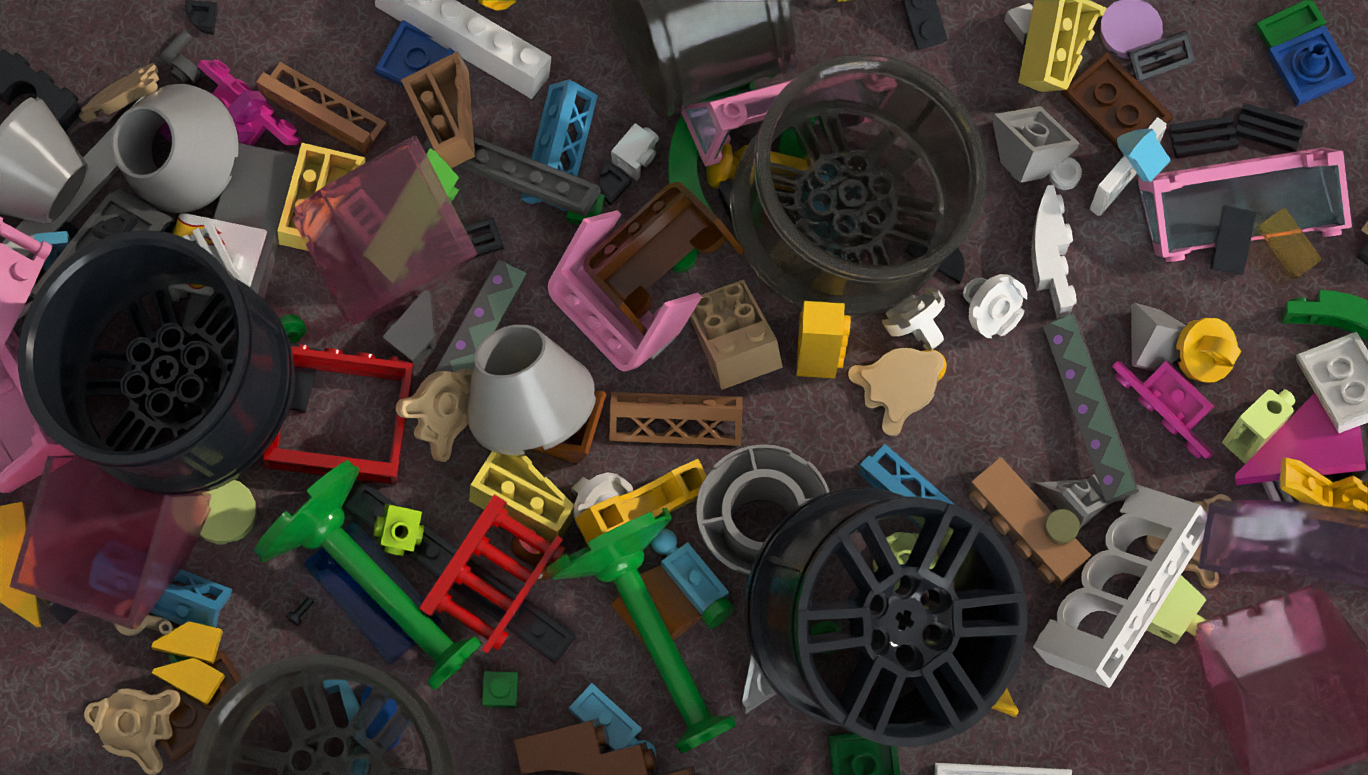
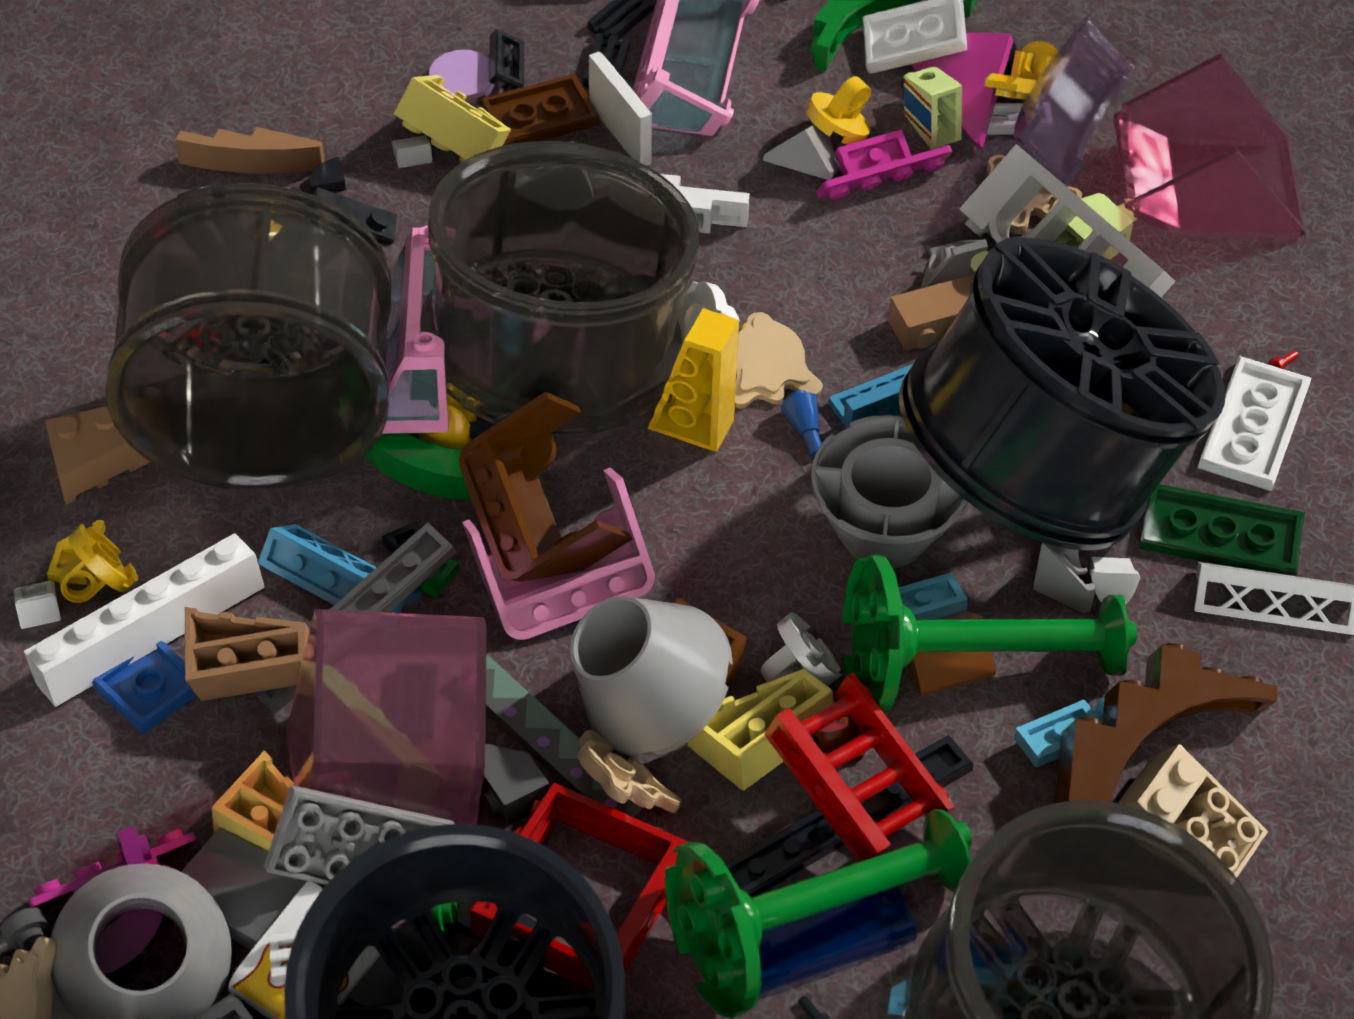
camera: 70 degrees left, 20 degrees down
(298, 252) = (328, 831): none -> light grey tile
(319, 114) = (160, 799): medium nougat fence -> none
(411, 530) = (761, 855): lime brick -> none
(500, 689) = (984, 823): green plate -> none
(635, 150) = (386, 504): white brick -> none
(670, 491) = (836, 628): yellow arch -> none
(675, 407) = (720, 548): medium nougat fence -> none
(717, 612) = (972, 591): green tile -> none
(735, 335) = (662, 477): tan slope -> none
(774, 721) = (1113, 577): none -> white tile
(853, 429) = (802, 412): none -> blue cone
(995, 304) = (718, 255): white tile -> none
(1091, 409) = (862, 220): tile -> none
(1143, 153) = (618, 72): medium azure tile -> none
(1233, 240) = (729, 68): black tile -> none
(1289, 243) = (750, 33): clear yellow tile -> none

